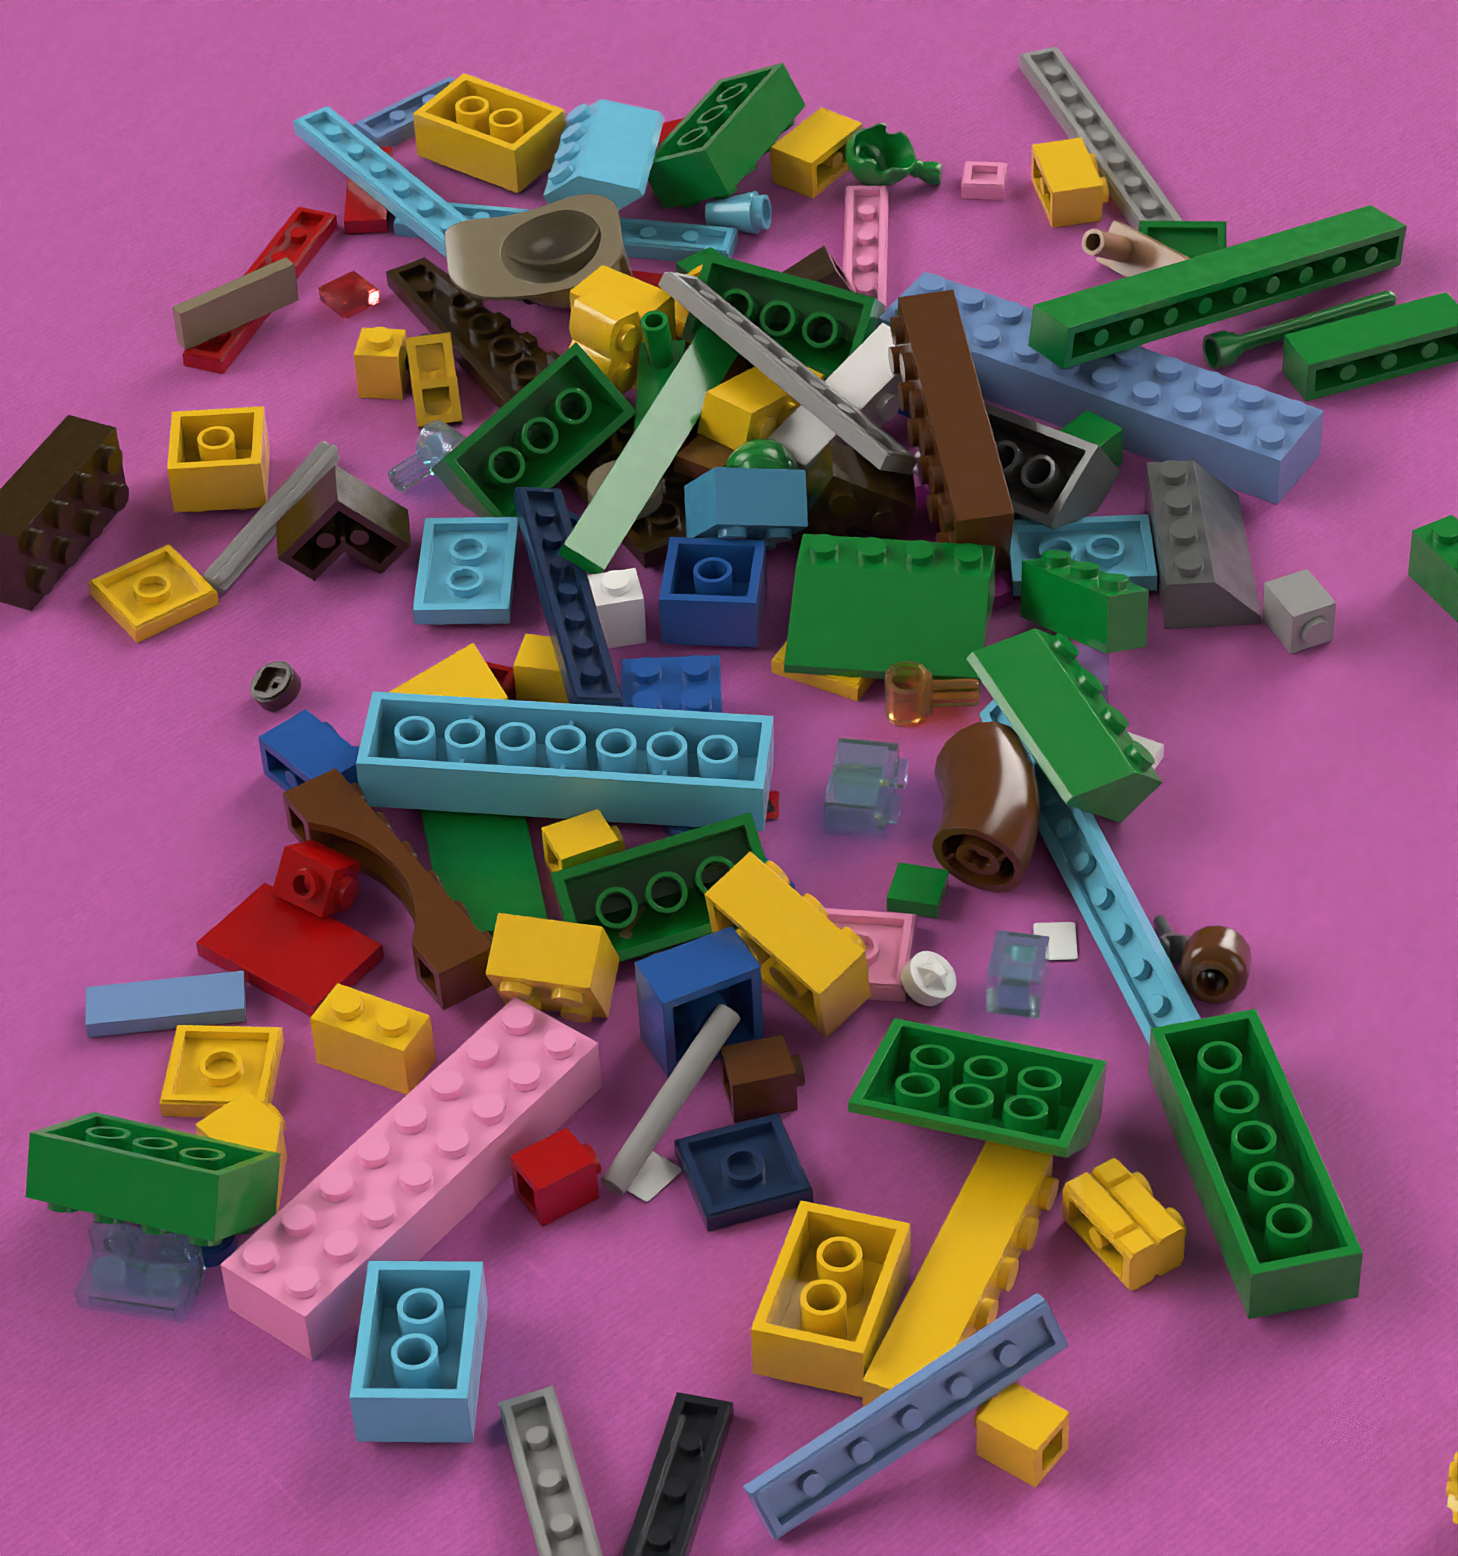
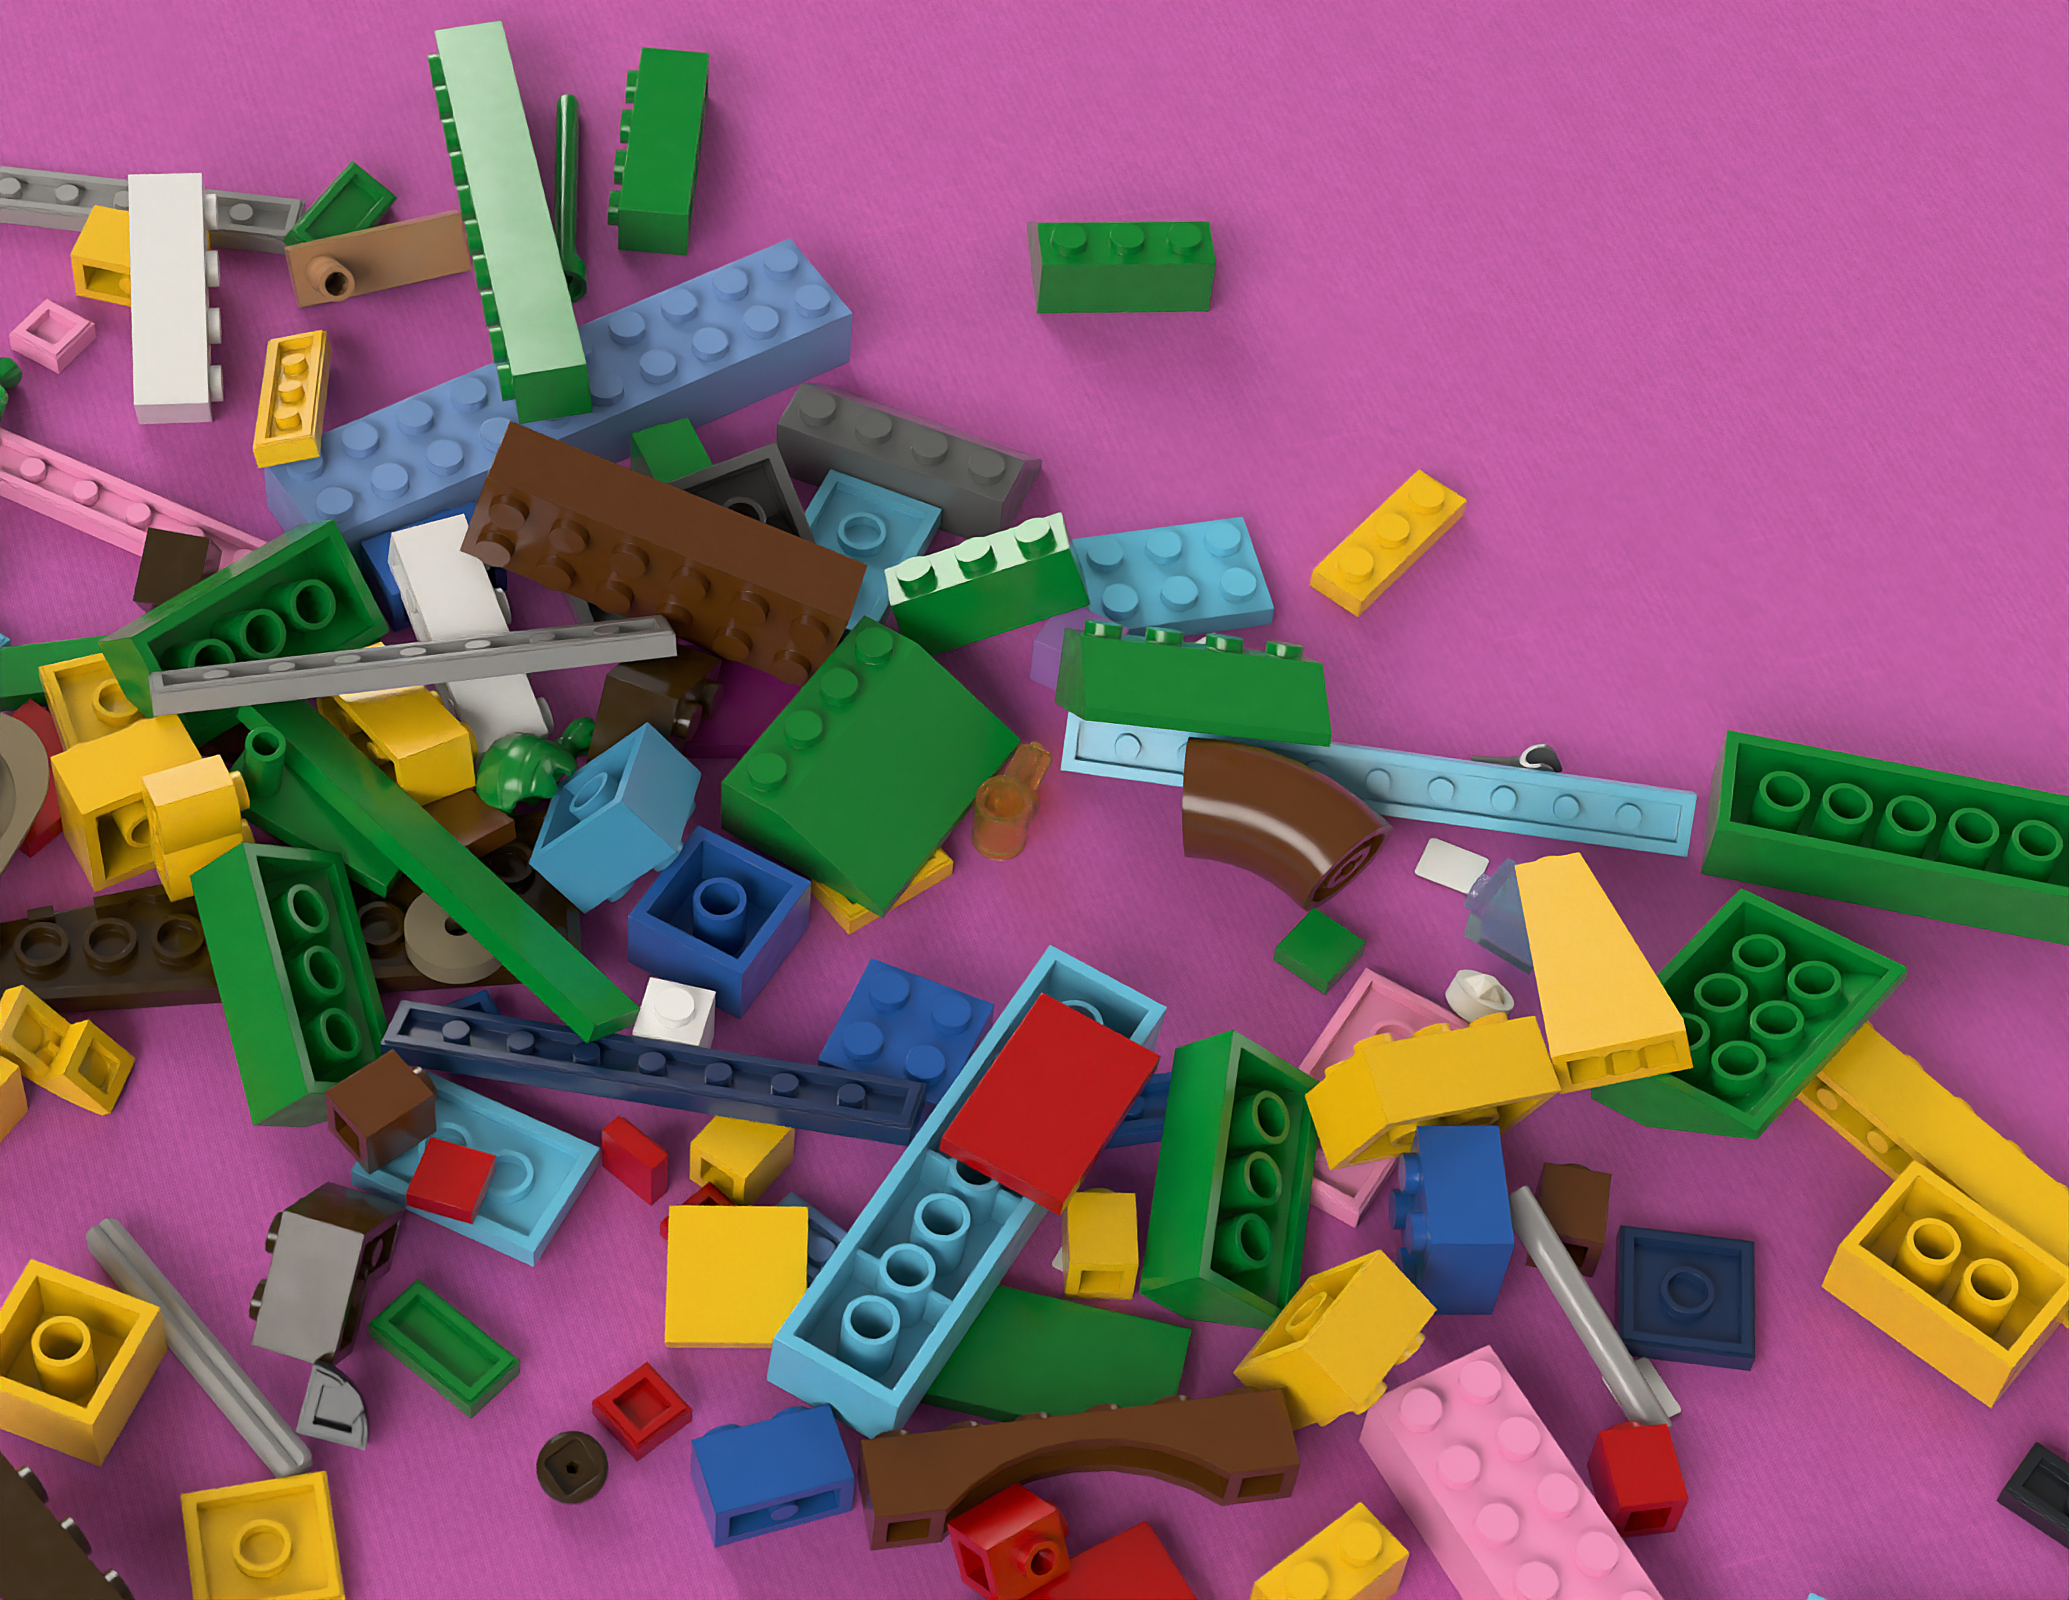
camera: 75 degrees left, 10 degrees up
(257, 575) = (334, 1408): none -> tile
(334, 610) = (444, 1348): none -> green tile
(340, 704) = (642, 1411): none -> red tile
(432, 445) = (213, 1109): clear light blue axle -> none
(437, 553) = (451, 1180): none -> red tile
(460, 501) = (382, 1110): none -> reddish brown brick
(511, 628) = (635, 1159): none -> red tile
(634, 750) = (1049, 1103): none -> red tile
(864, 787) = (1138, 926): clear light blue brick -> none
(937, 983) = (1595, 987): none -> yellow slope
(991, 267) = (292, 399): none -> yellow tile
(1022, 187) = (171, 298): none -> white brick
(1124, 1223) = (1946, 989): yellow brick -> none
(1200, 714) = (1177, 578): none -> medium azure plate
(1215, 964) = (1589, 740): reddish brown head -> none
(1299, 611) = (1074, 421): light grey brick -> none
(1337, 812) = (1388, 543): none -> yellow plate

